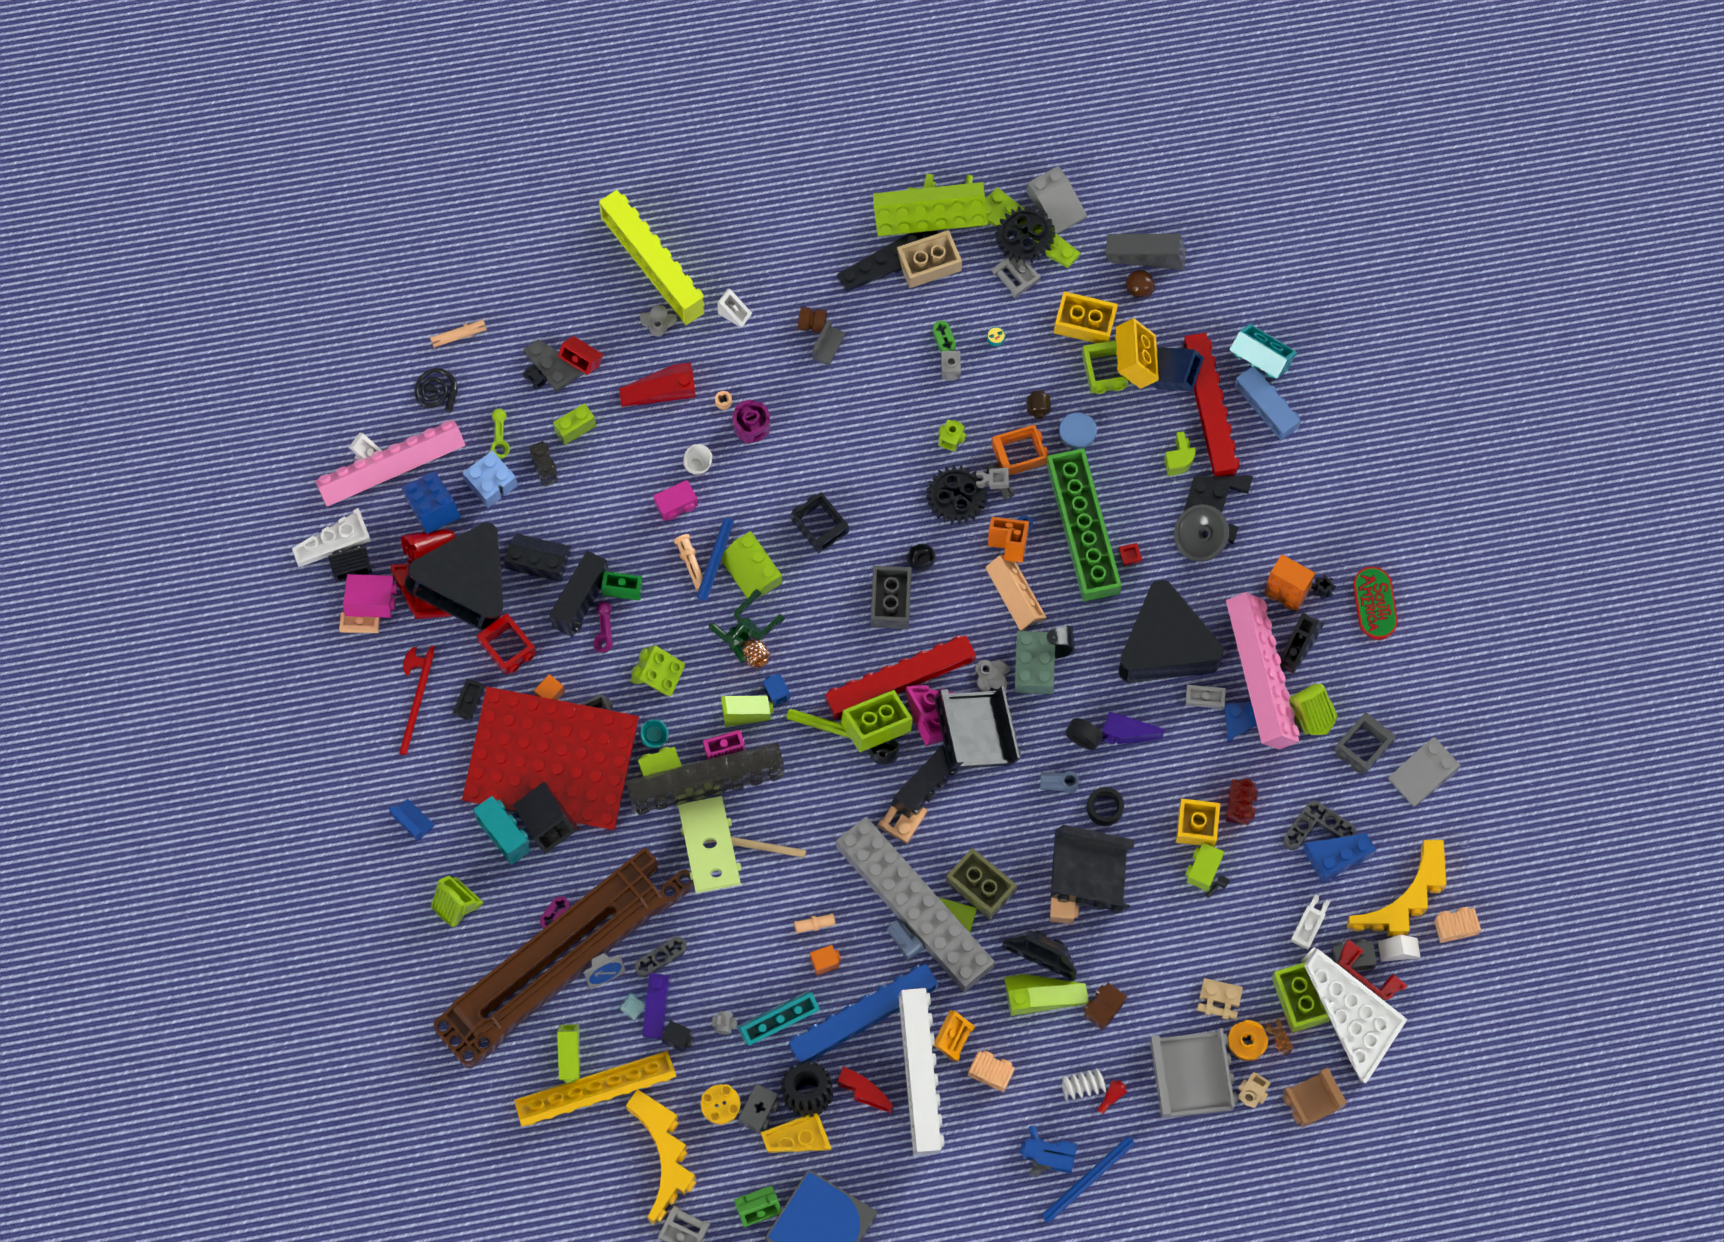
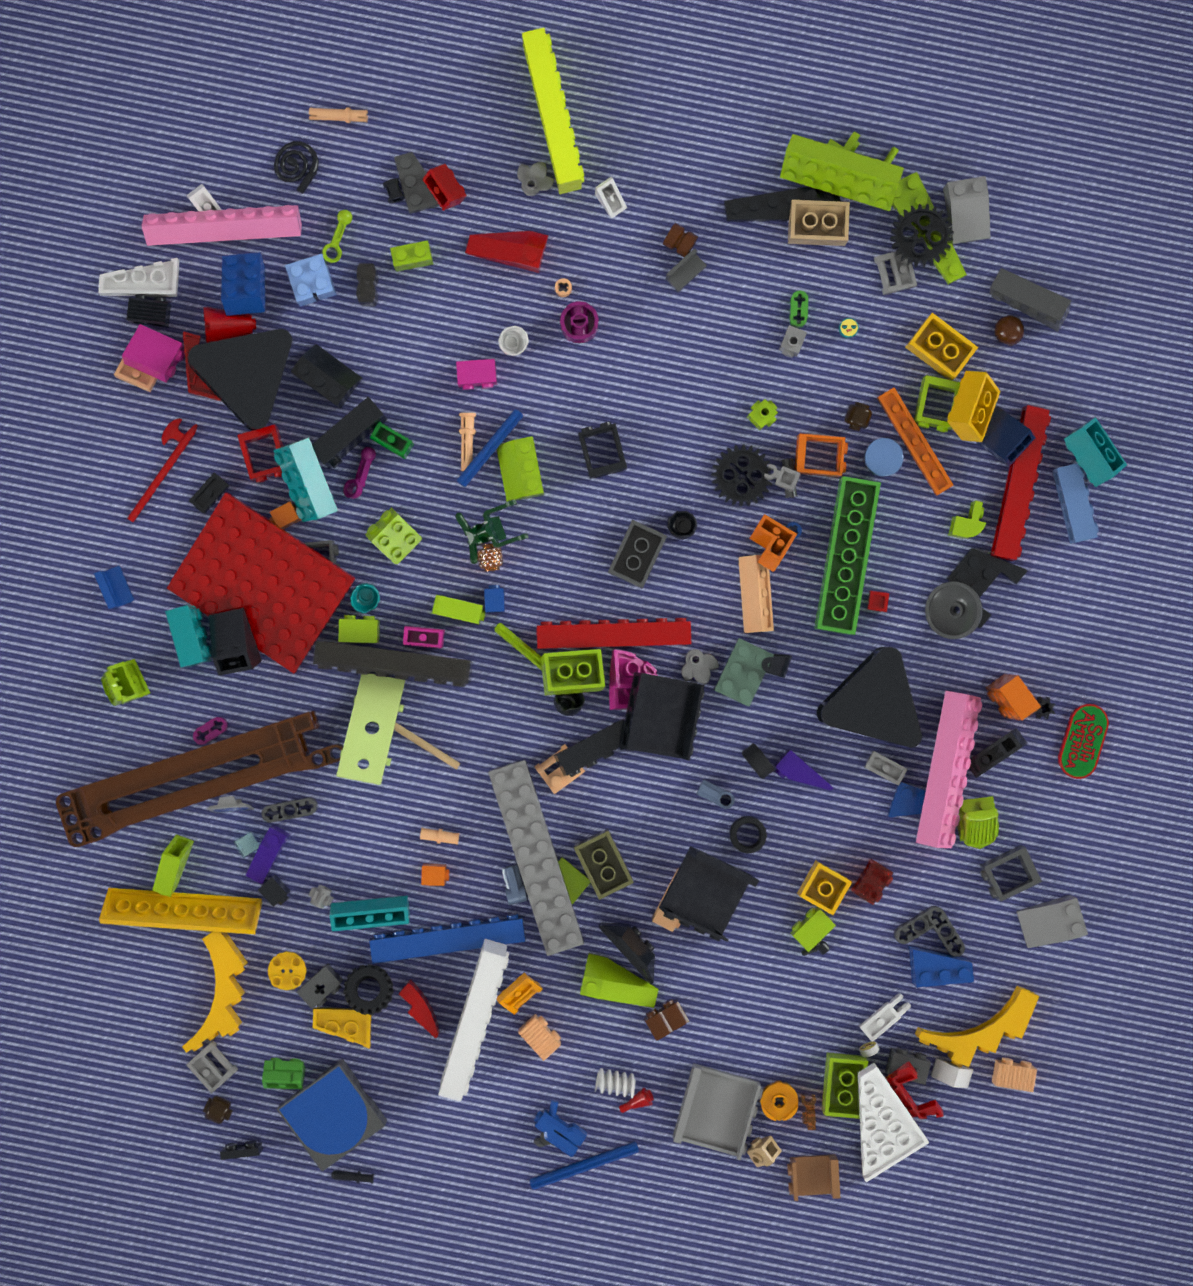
camera: 25 degrees right, 20 degrees up
(557, 646) = (305, 480): none -> brick
(1100, 407) = (915, 441): none -> orange plate
(1220, 993) = (774, 1047): tan plate -> none

